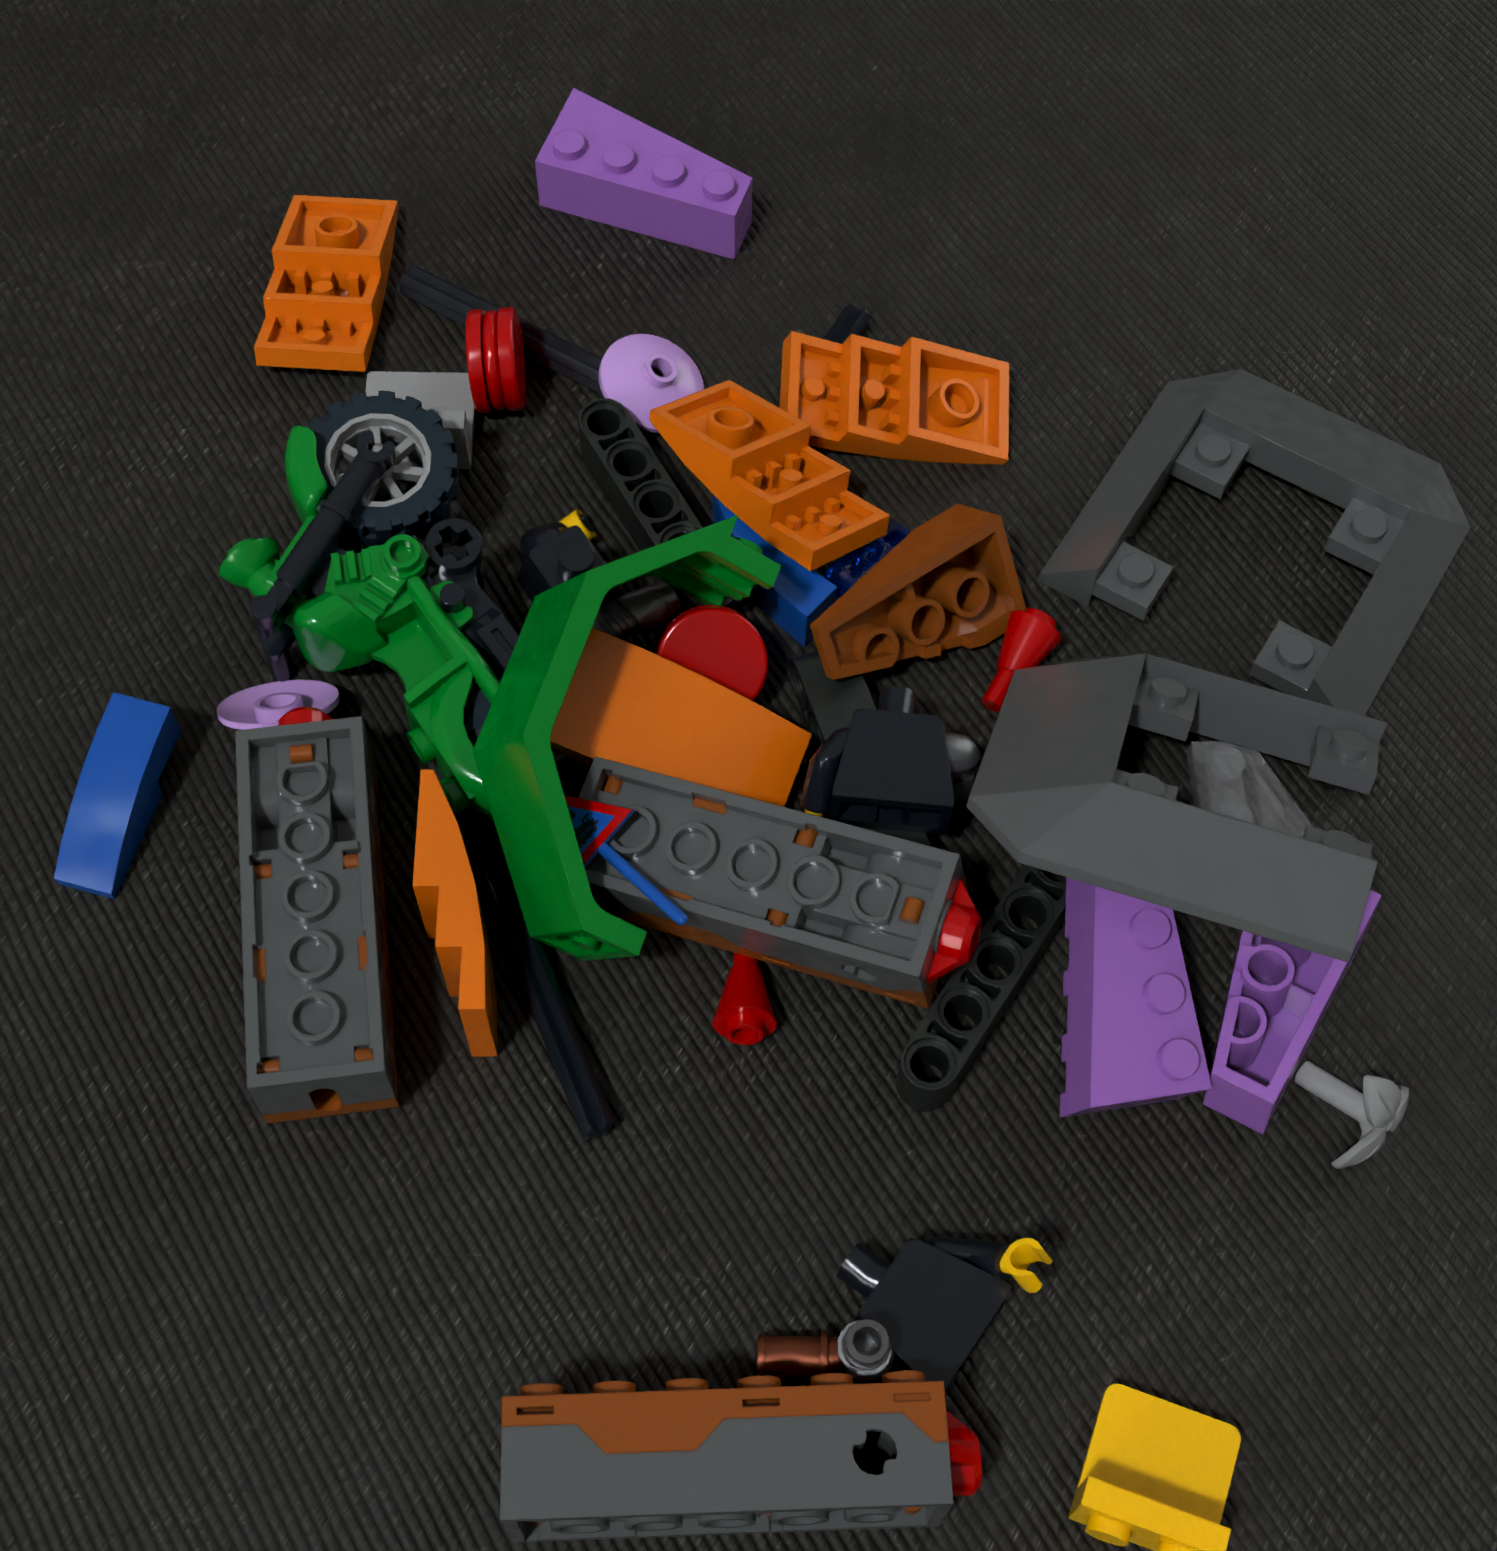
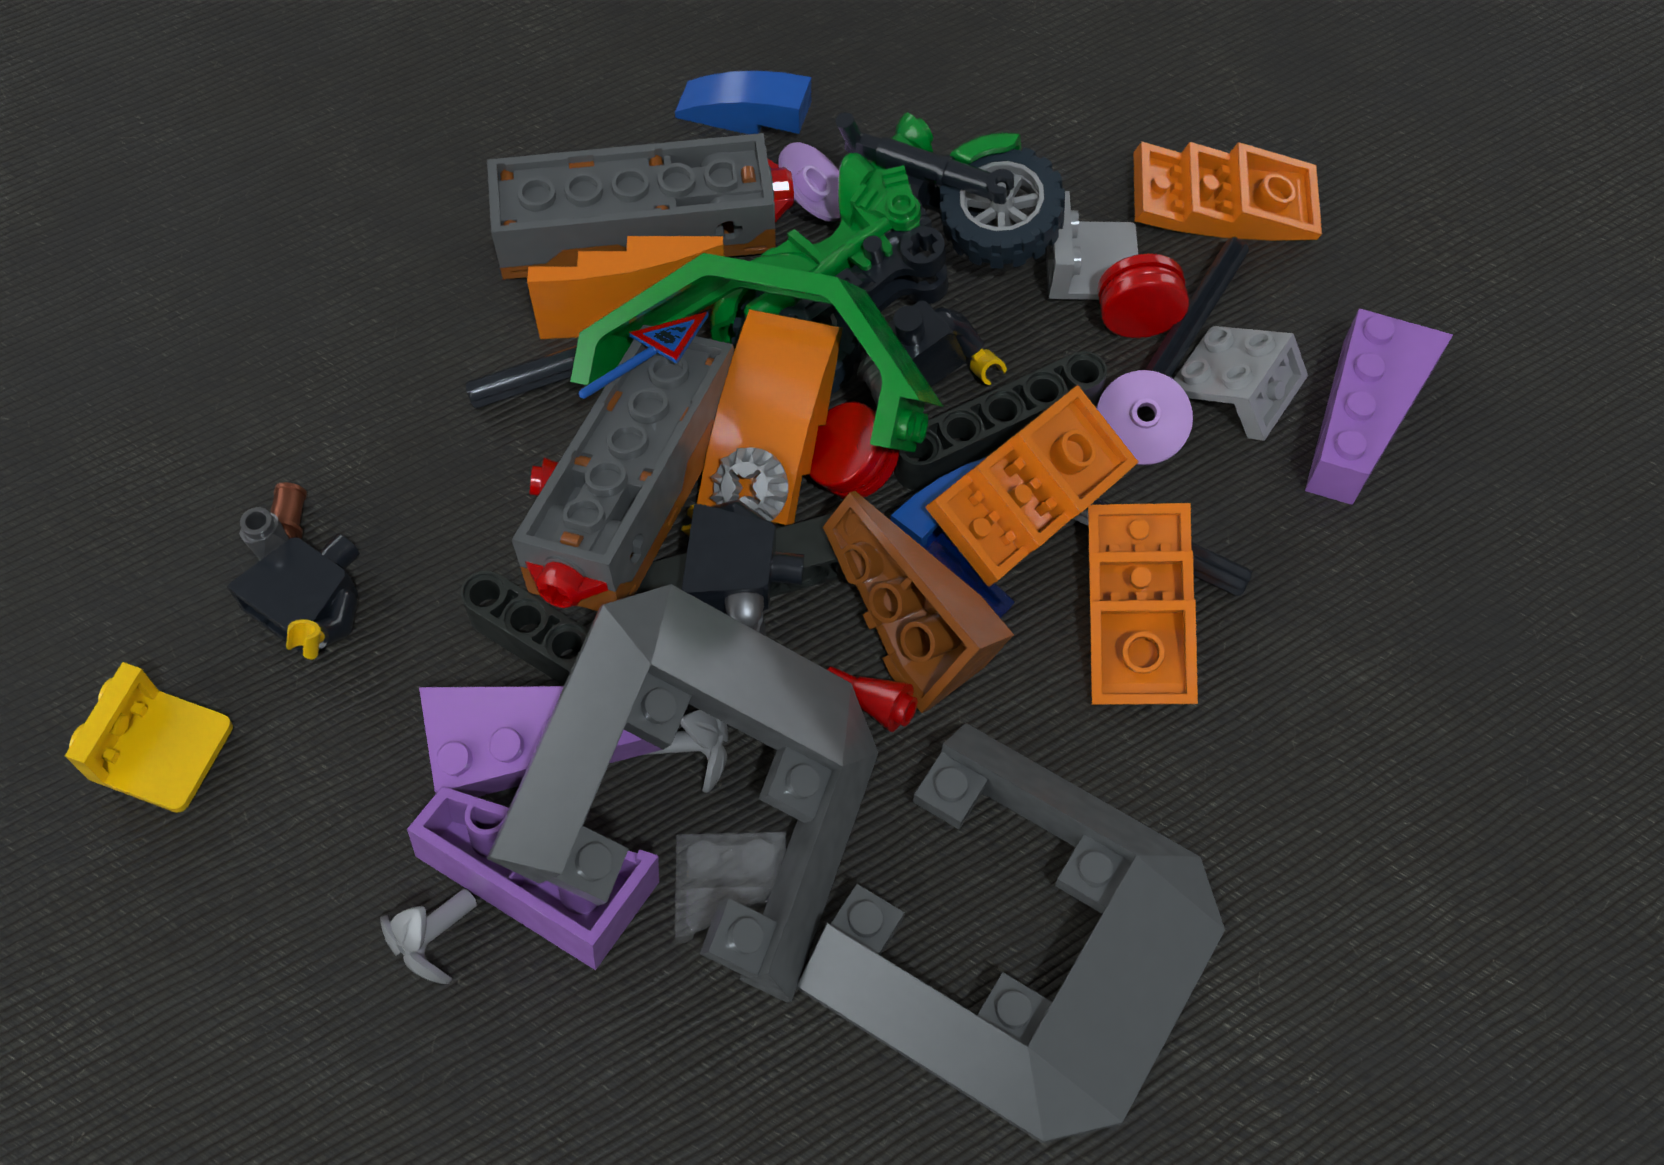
camera: 90 degrees right, 0 degrees up
(591, 290) = (1248, 369): none -> light grey bracket
(731, 1458) = (202, 455): dark grey piece -> none
(751, 754) = (770, 483): none -> light grey gear

